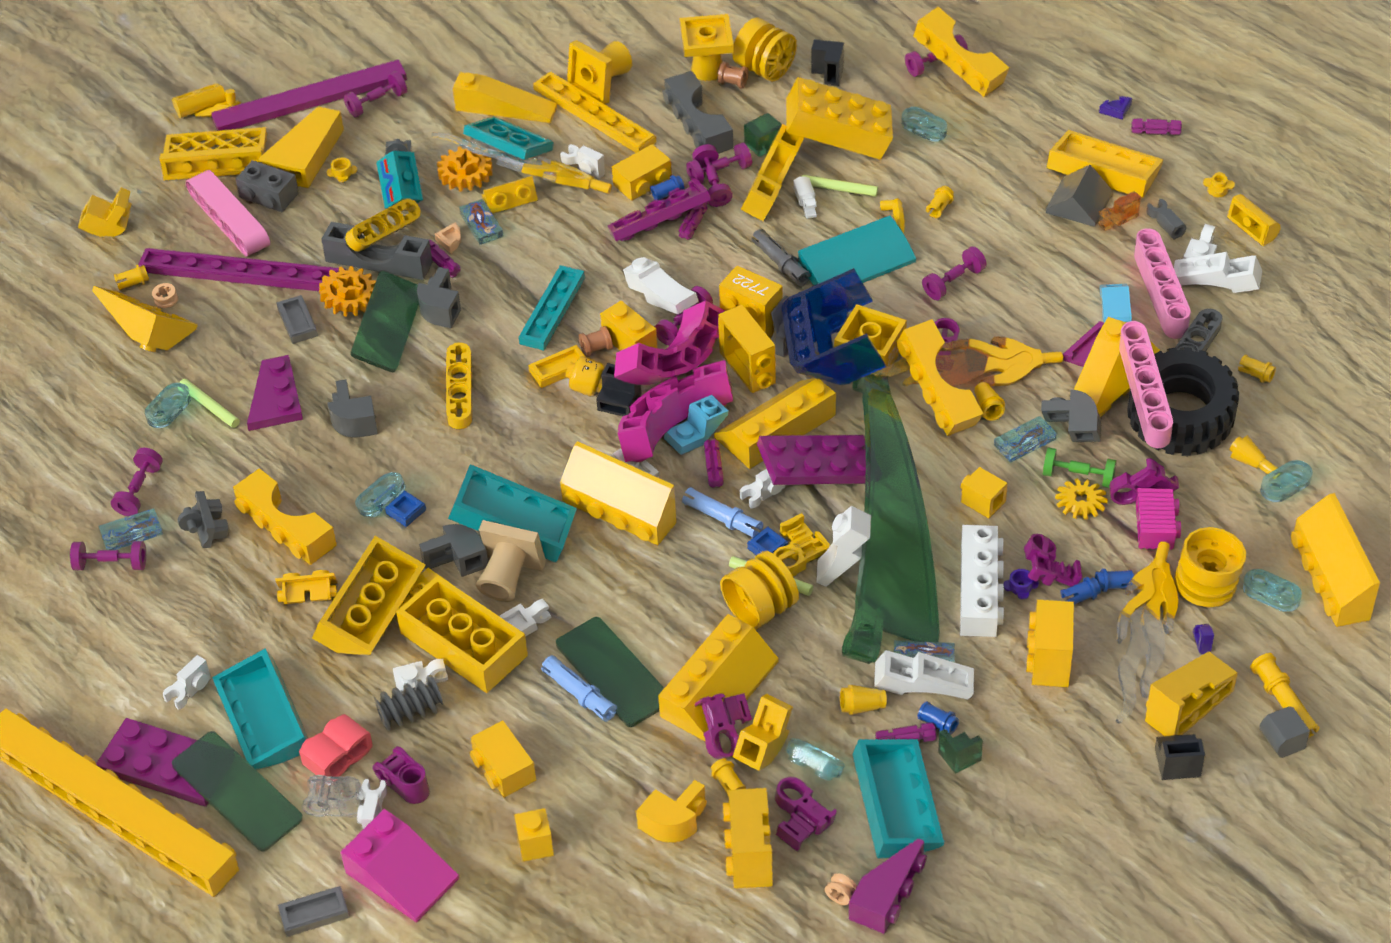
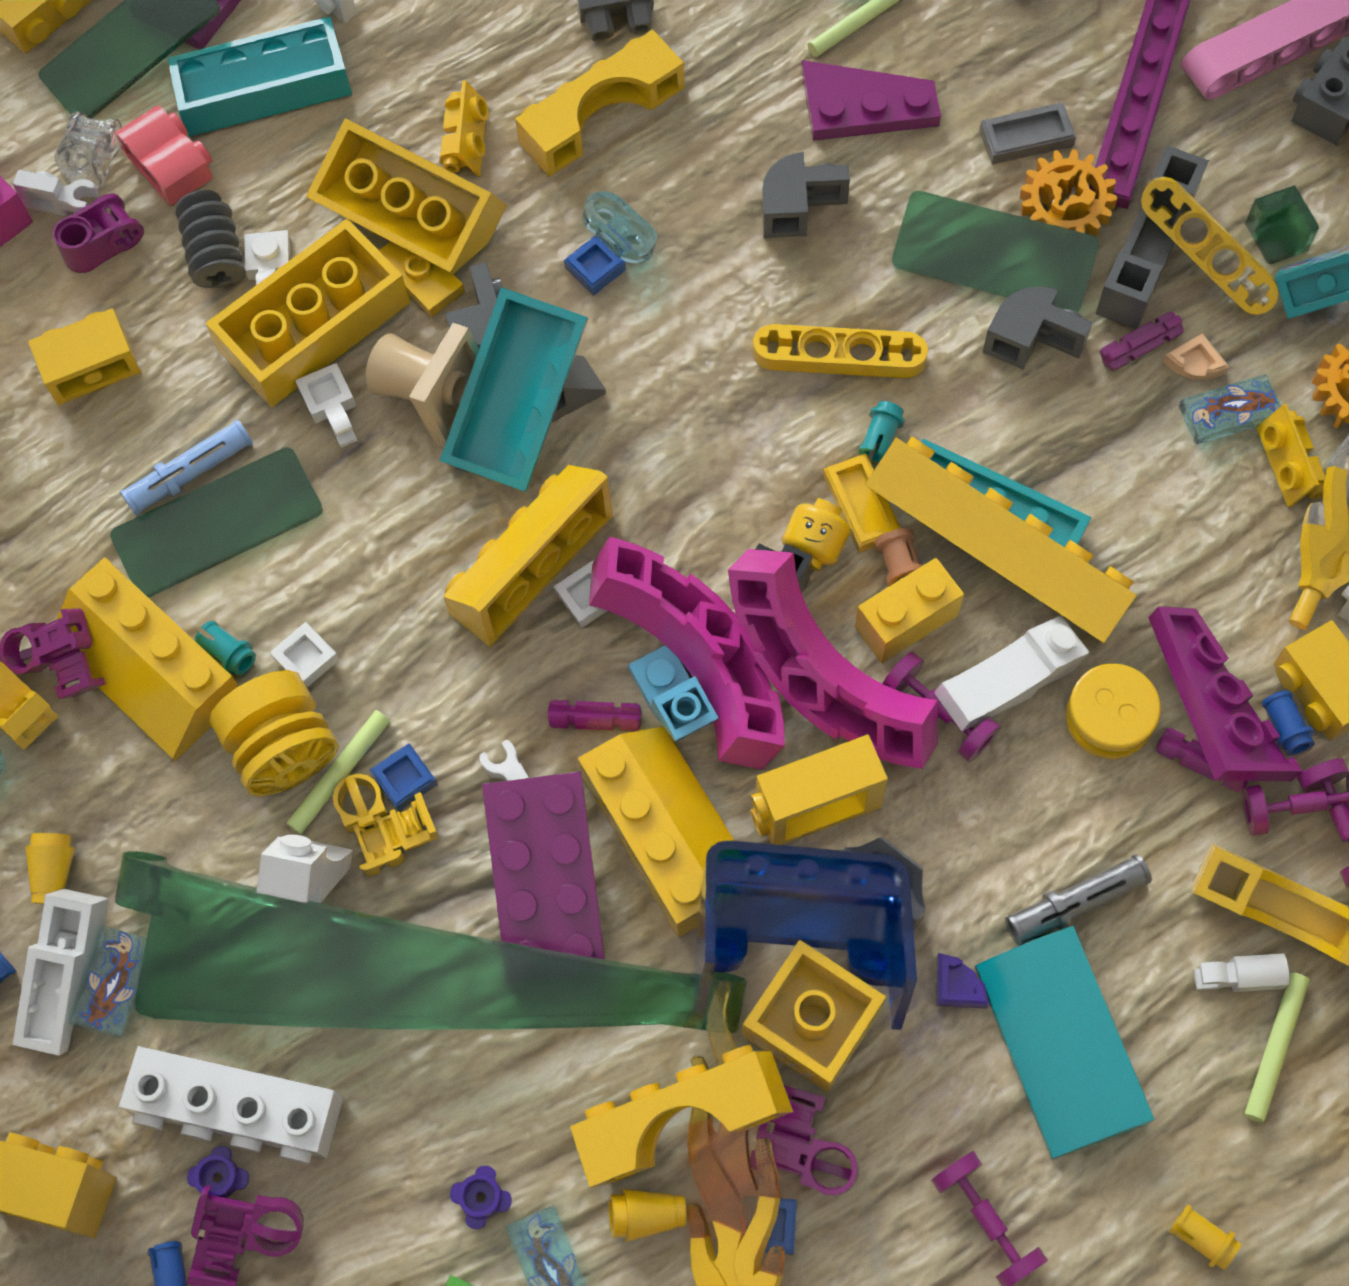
camera: 100 degrees right, 20 degrees up
(359, 204) = (1281, 224): none -> clear green panel
(512, 359) = (885, 421): none -> teal pin
(581, 294) = (1001, 539): none -> yellow brick
(674, 250) = (1112, 711): none -> yellow head
(701, 600) = (305, 653): none -> white plate
(703, 632) = (233, 654): none -> teal pin
(730, 516) = (464, 726): light blue pin -> none
(754, 293) = (933, 808): yellow brick -> none
(898, 213) = (1200, 1148): yellow bar -> none
(983, 492) = (424, 1152): yellow brick -> none
(1000, 467) = (466, 1192): none -> dark purple plate

